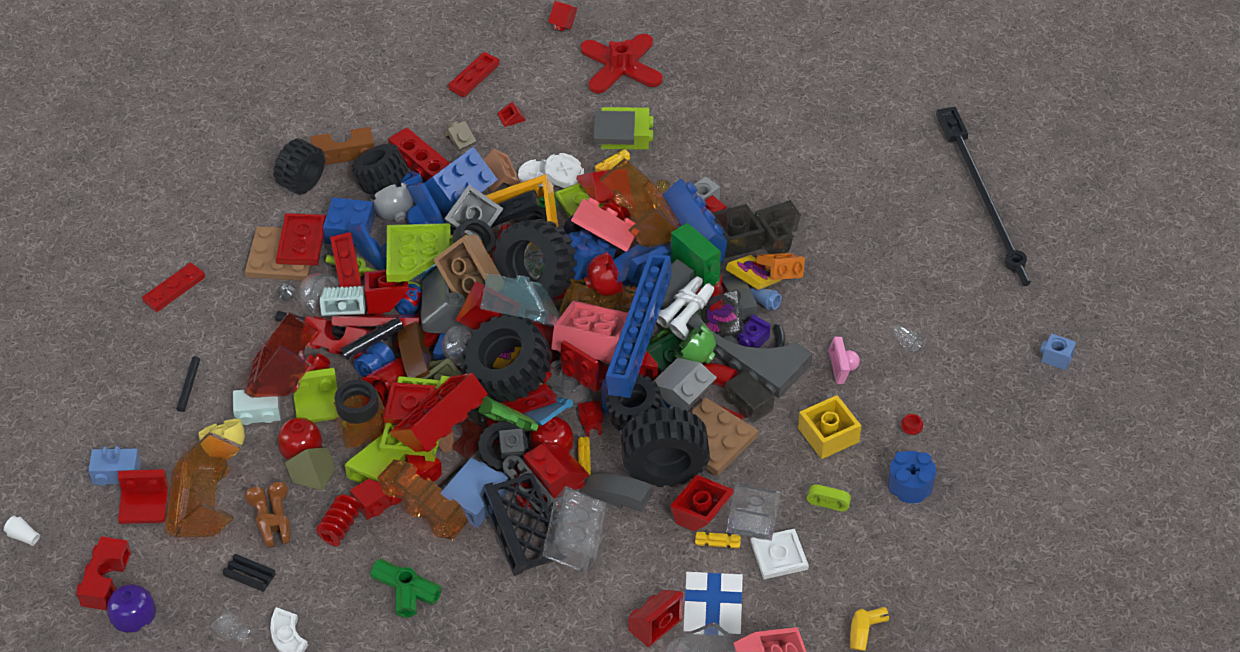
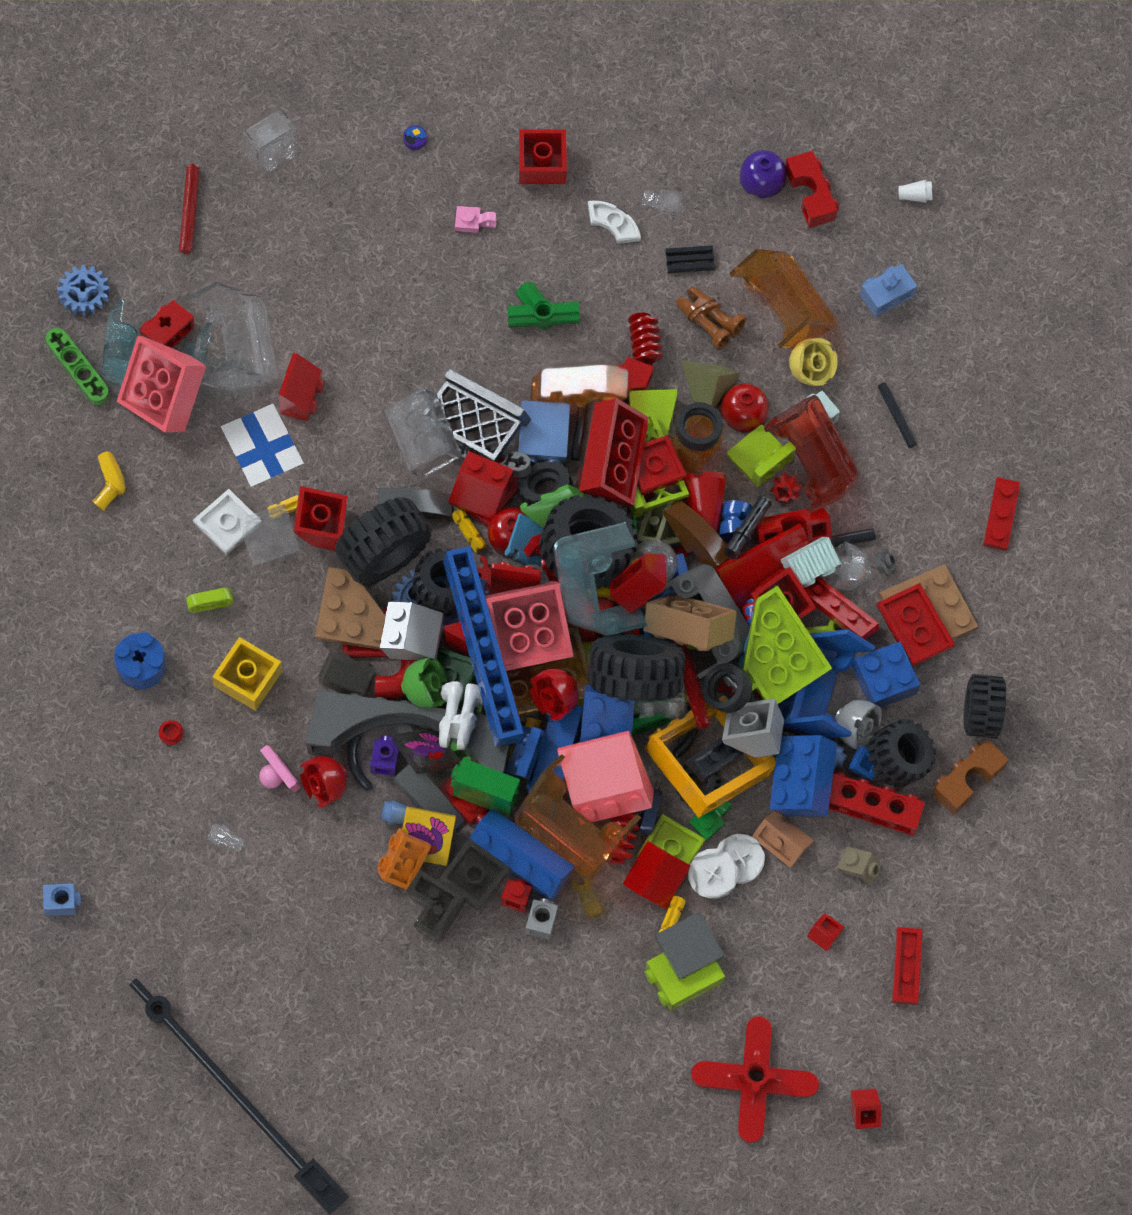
camera: 145 degrees right, 20 degrees up
(143, 496) = (836, 273): red bracket -> none
(511, 443) = (531, 474): dark grey brick -> none
(809, 333) = (322, 775): none -> red cylinder

